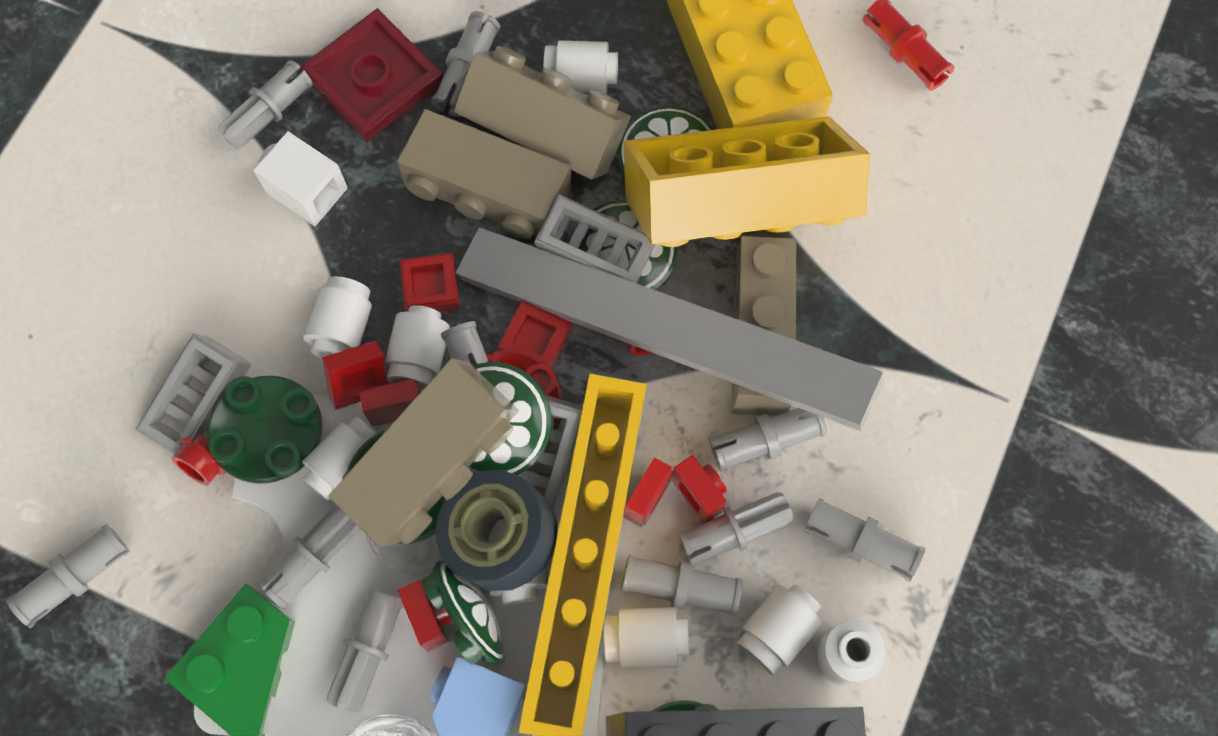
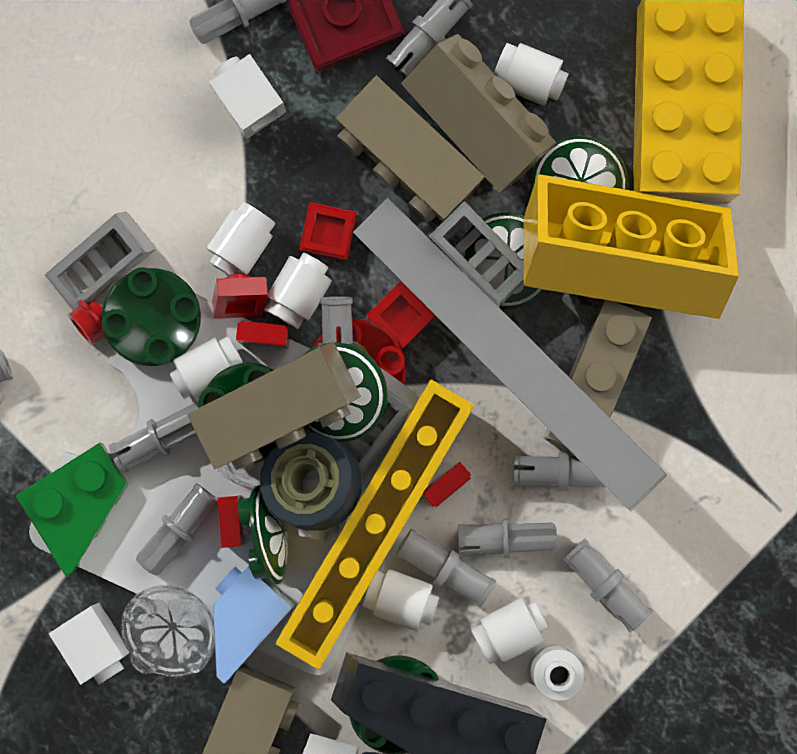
camera: 20 degrees right, 15 degrees up
(700, 488) = (491, 496): red plate -> none

